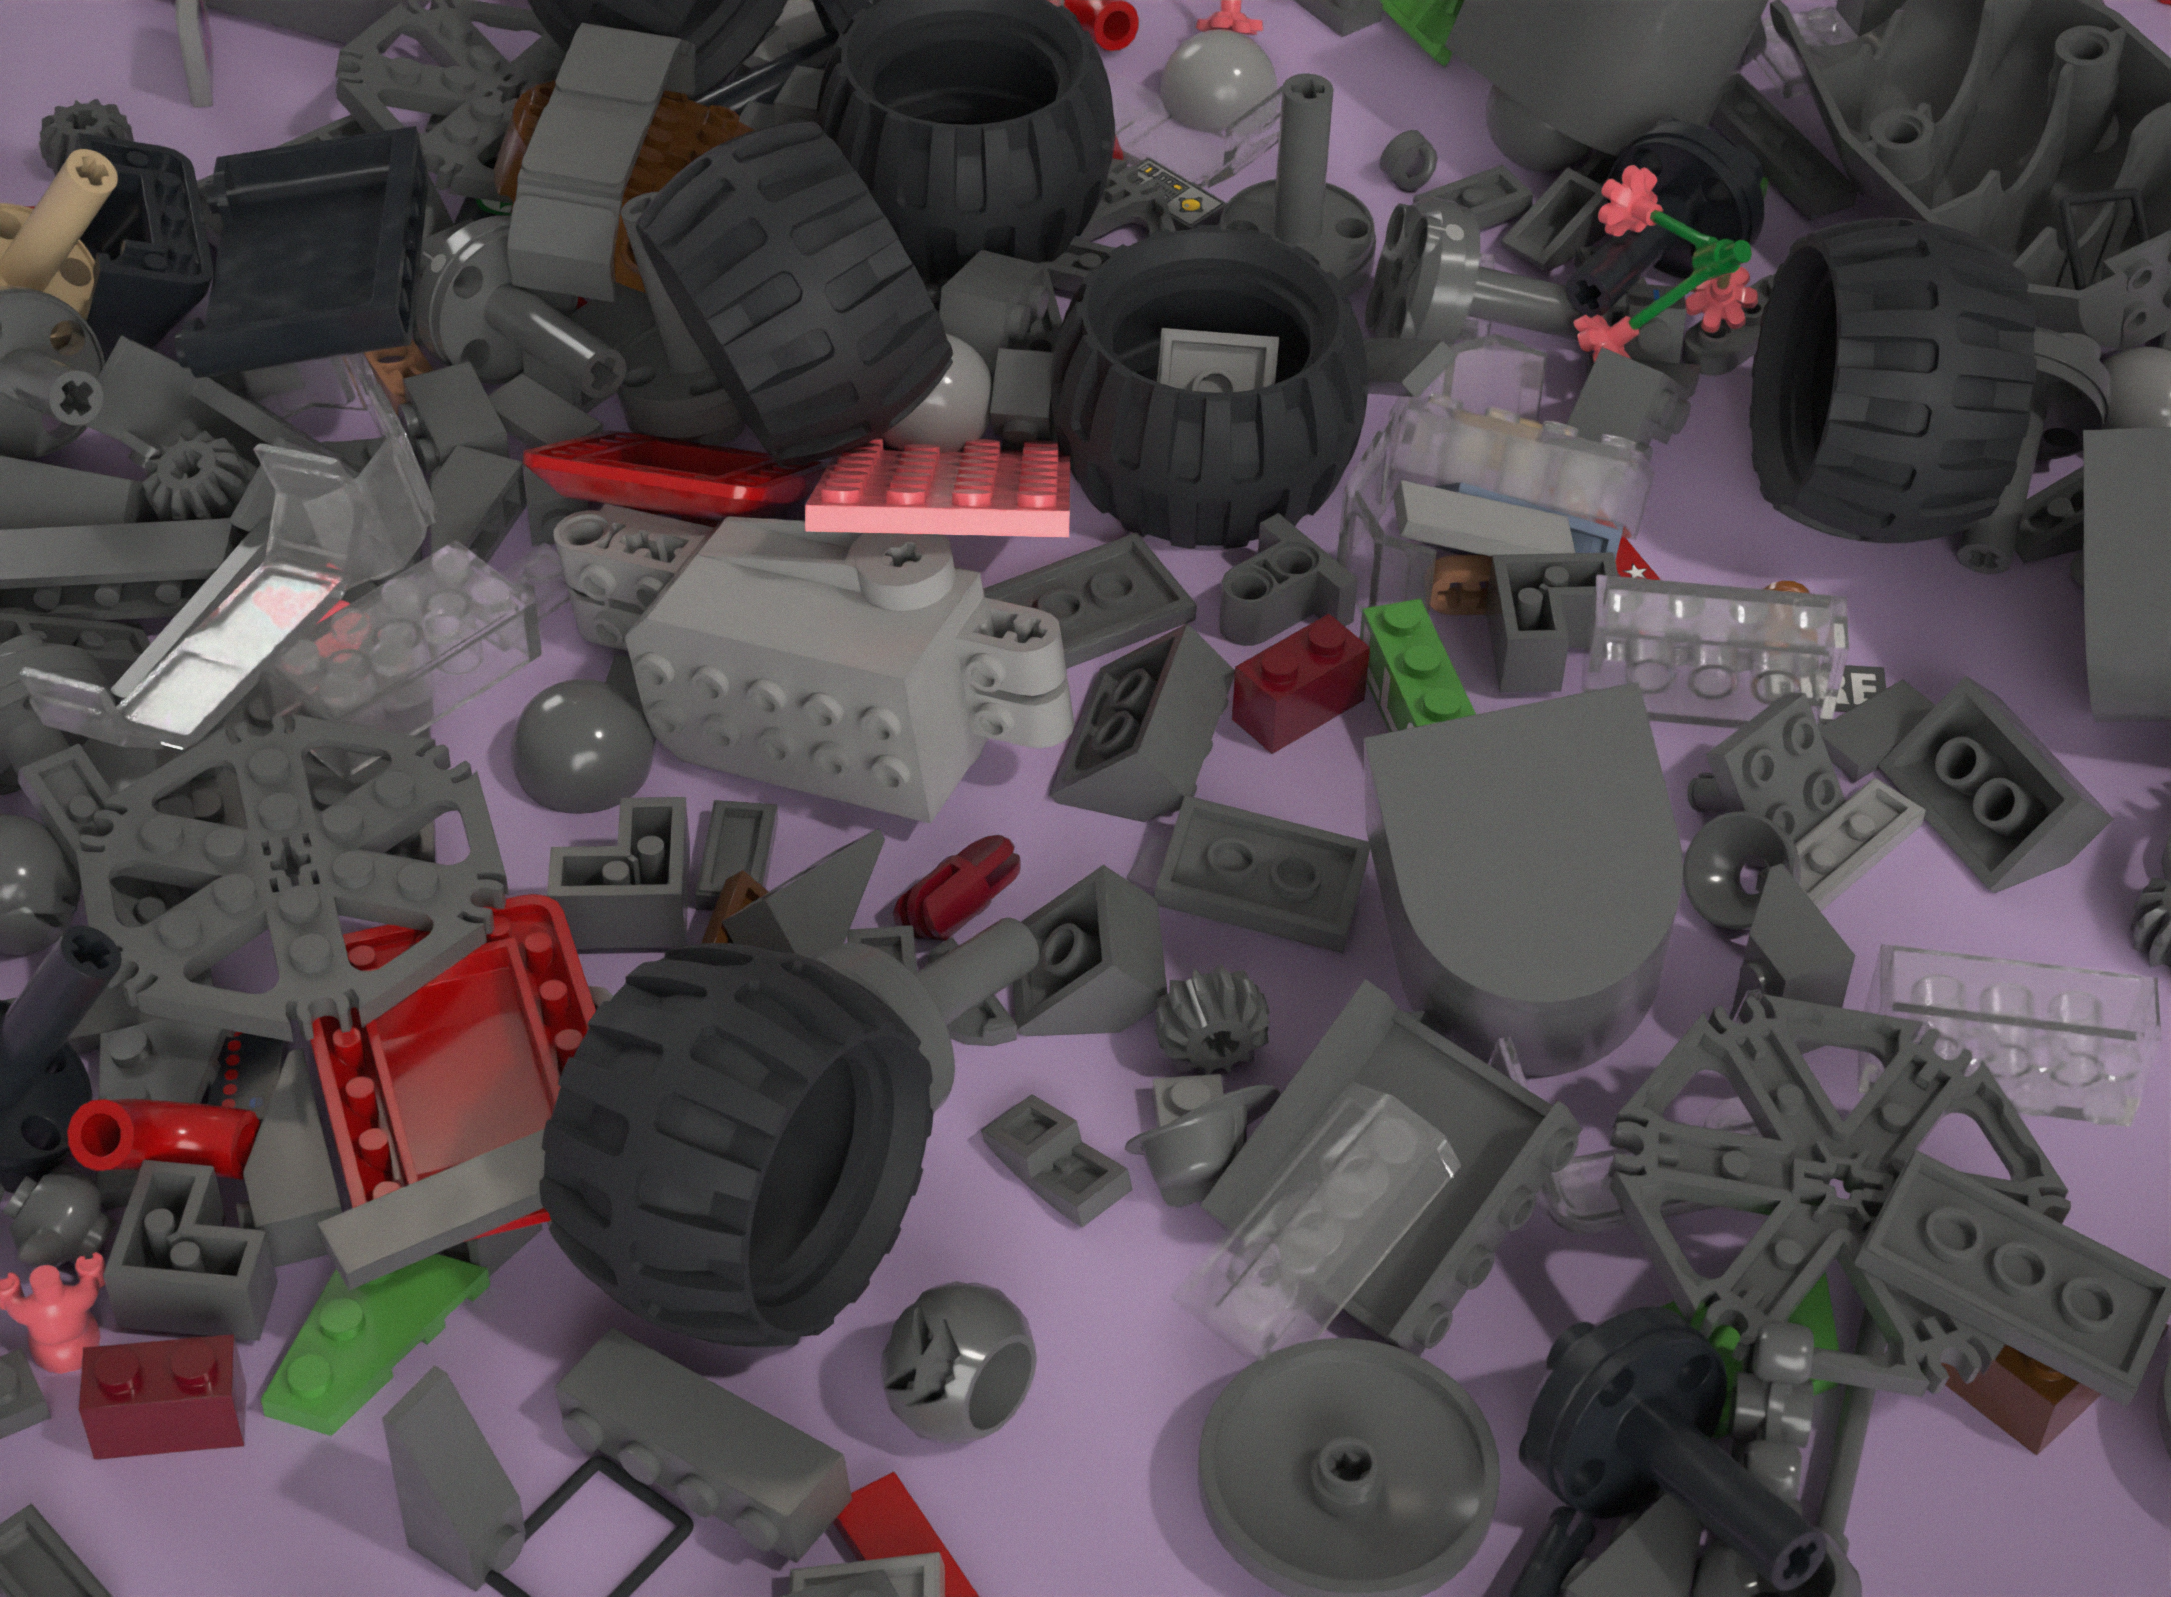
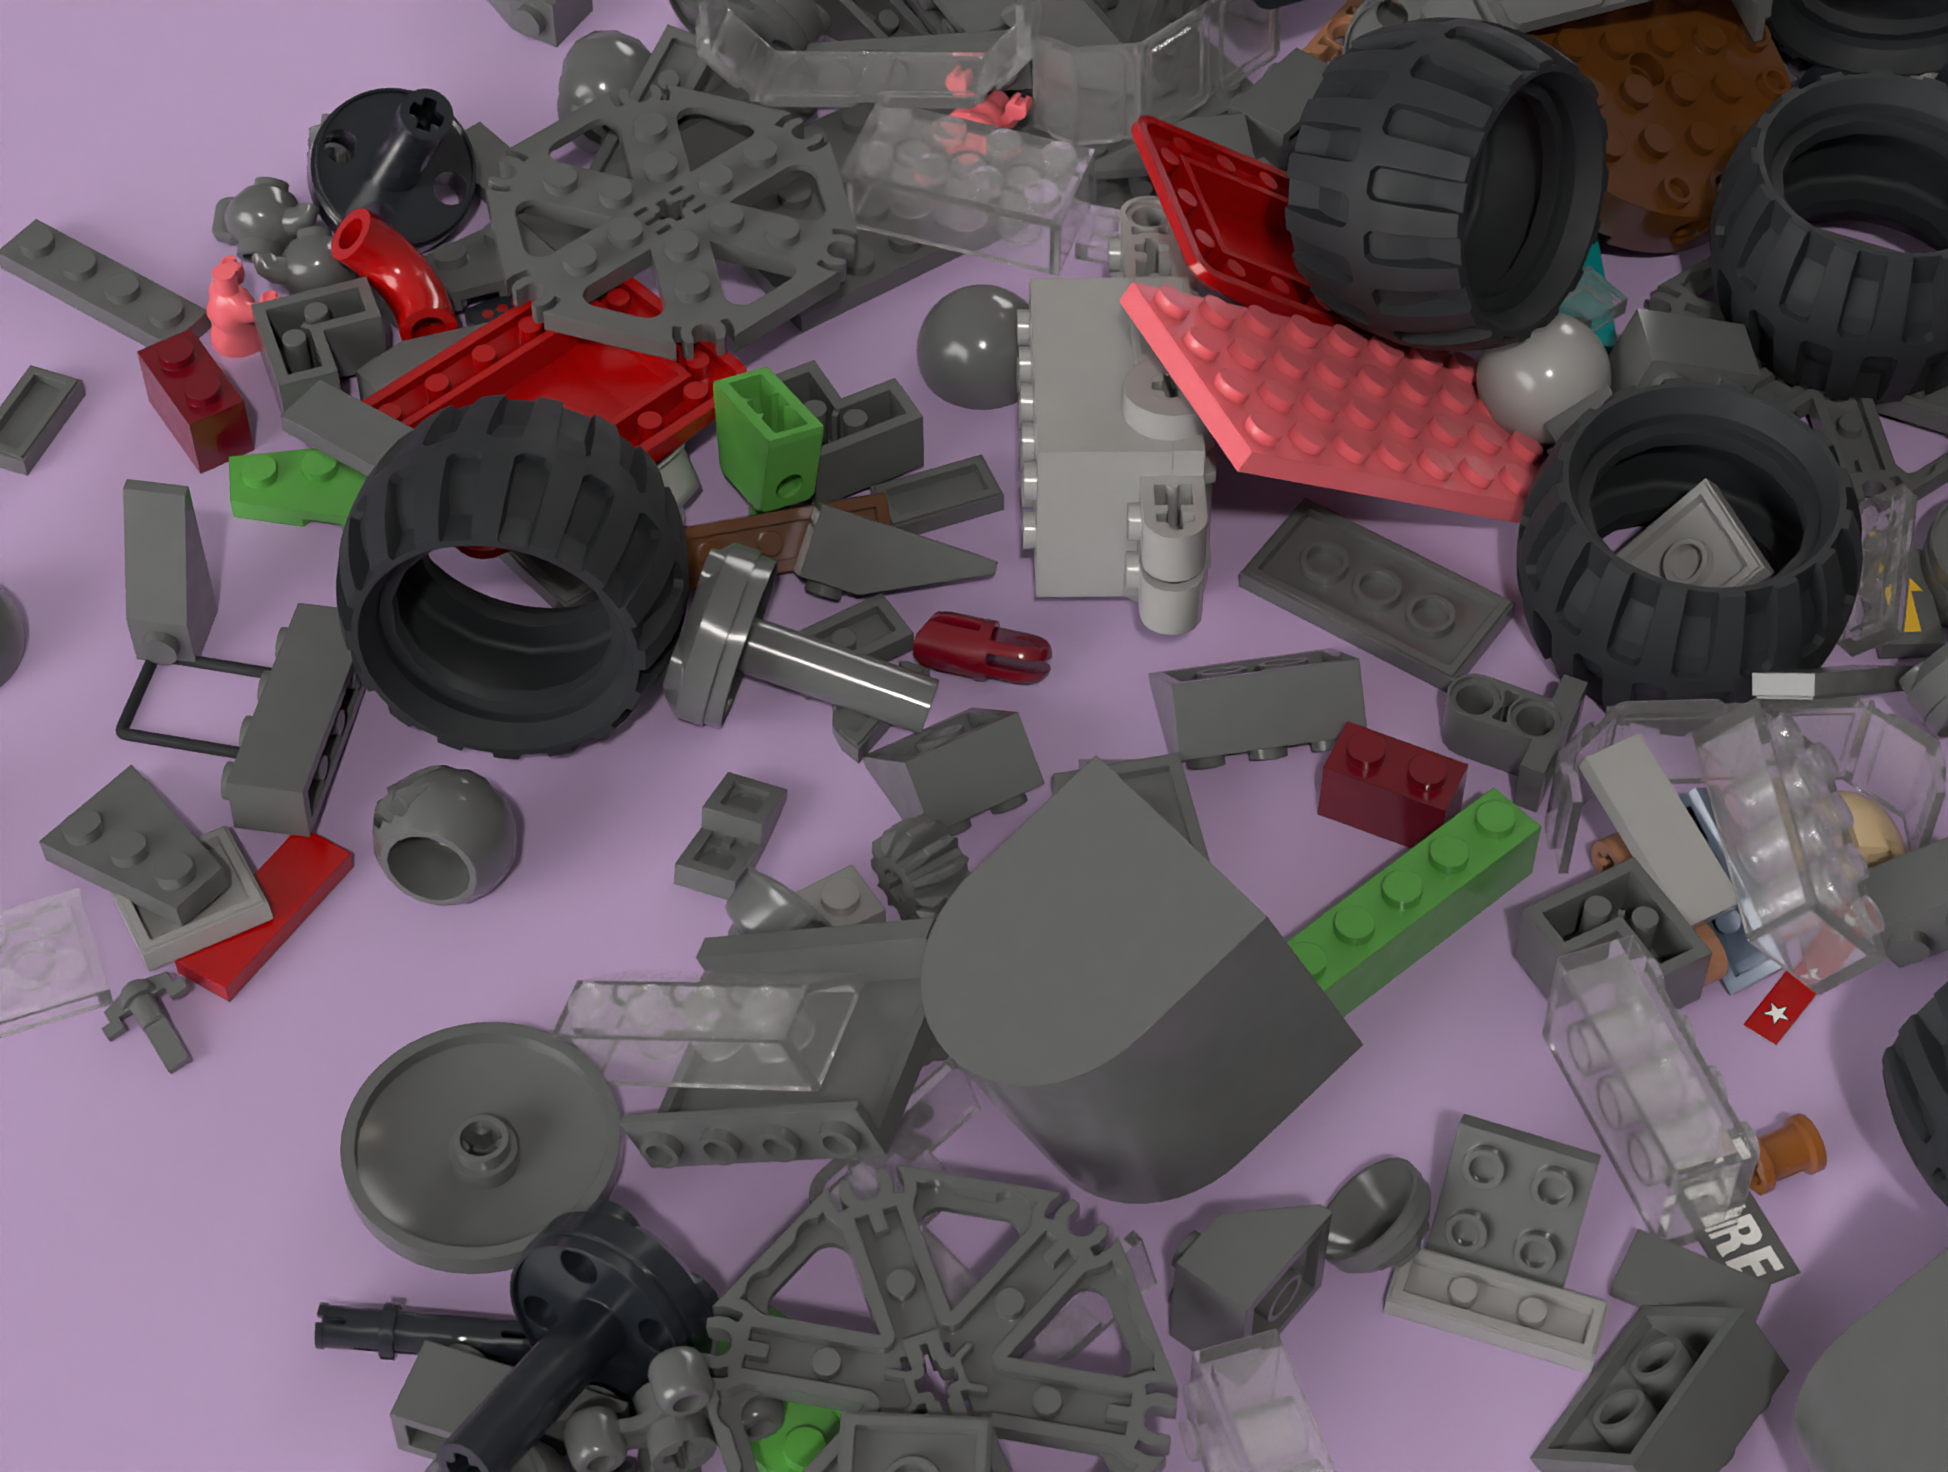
camera: 65 degrees right, 5 degrees up
(629, 911) = (766, 440): none -> bright green torso

